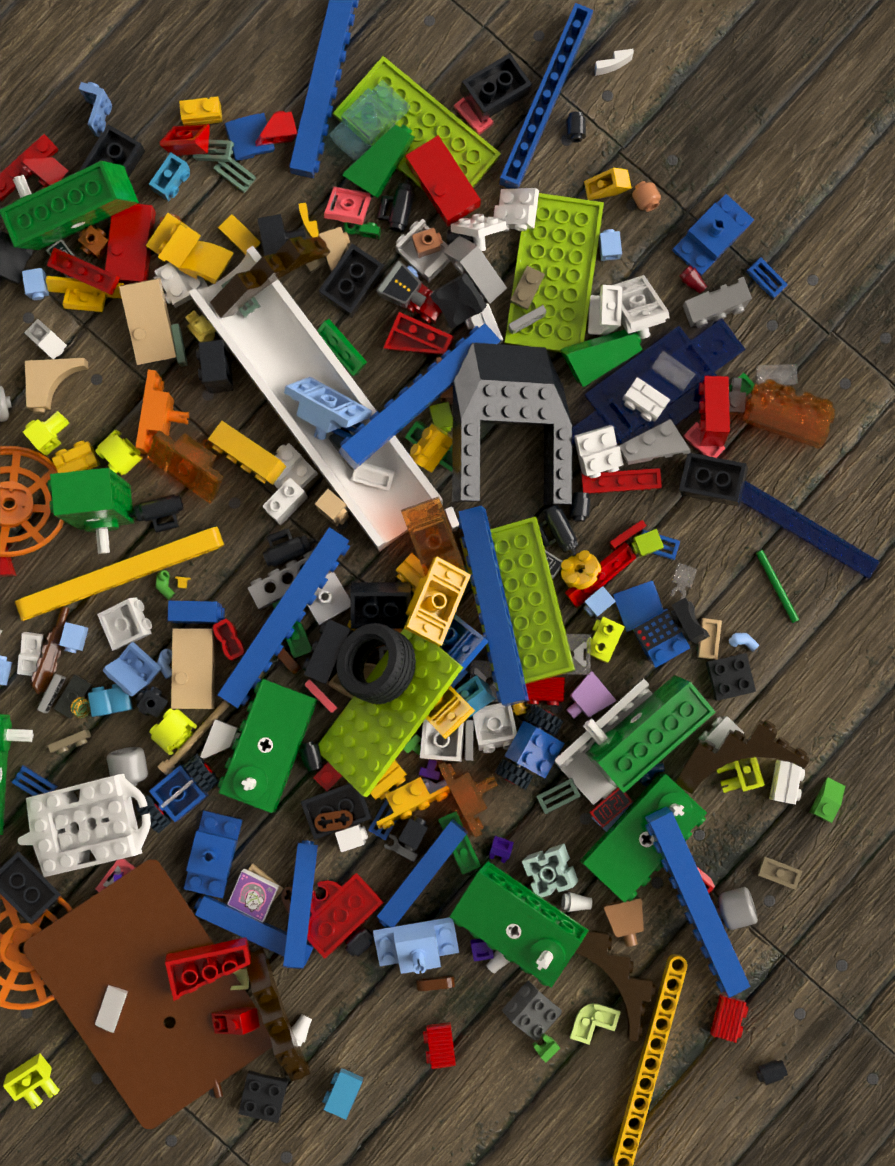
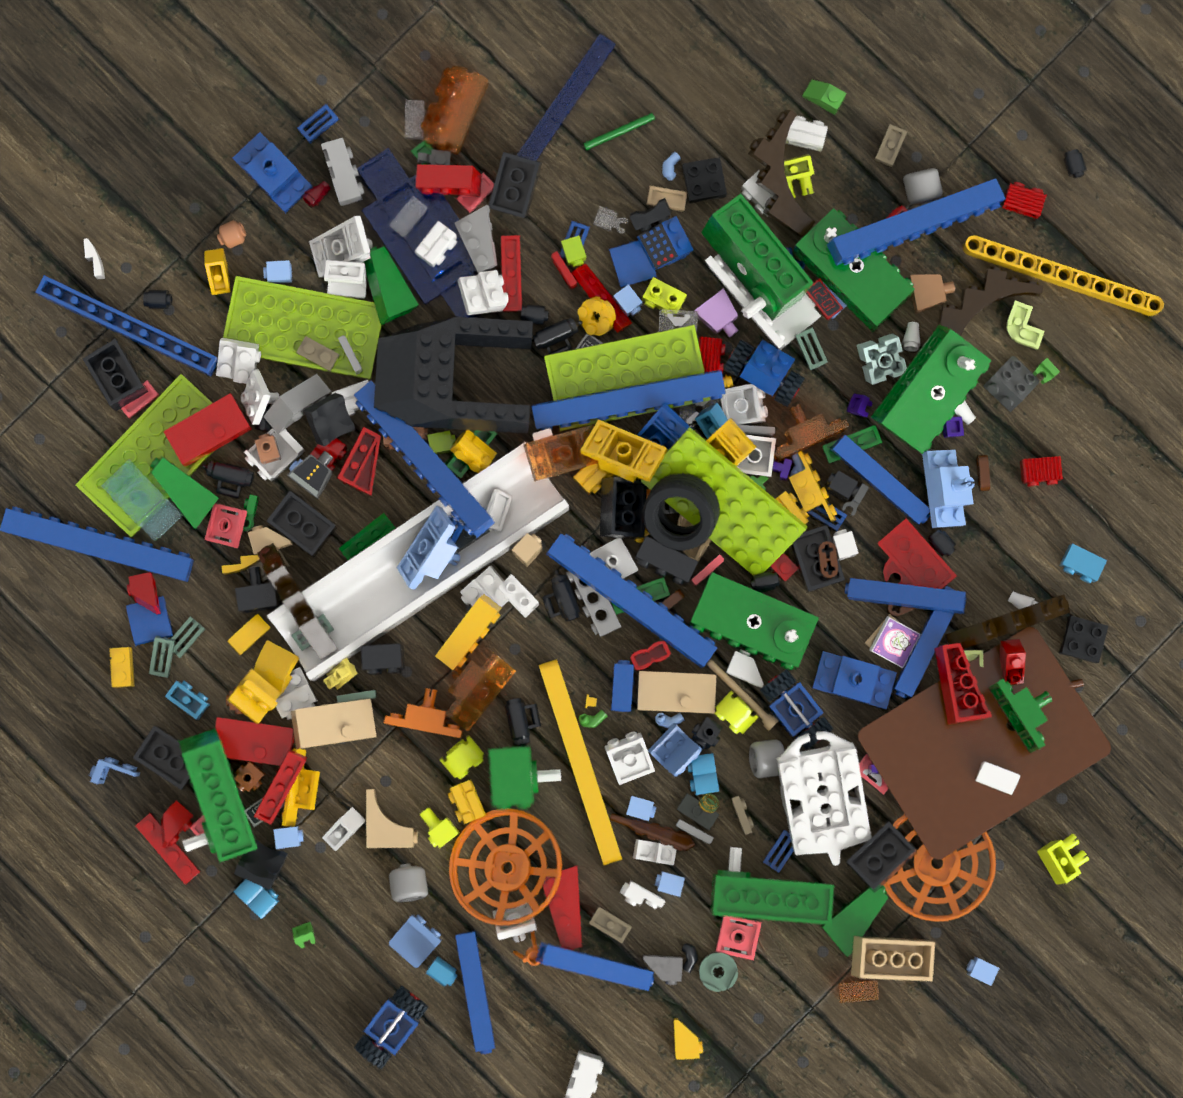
camera: 90 degrees left, 0 degrees up
(180, 1034) = (1022, 712): none -> green brick
(187, 140) = (149, 681): red slope -> none

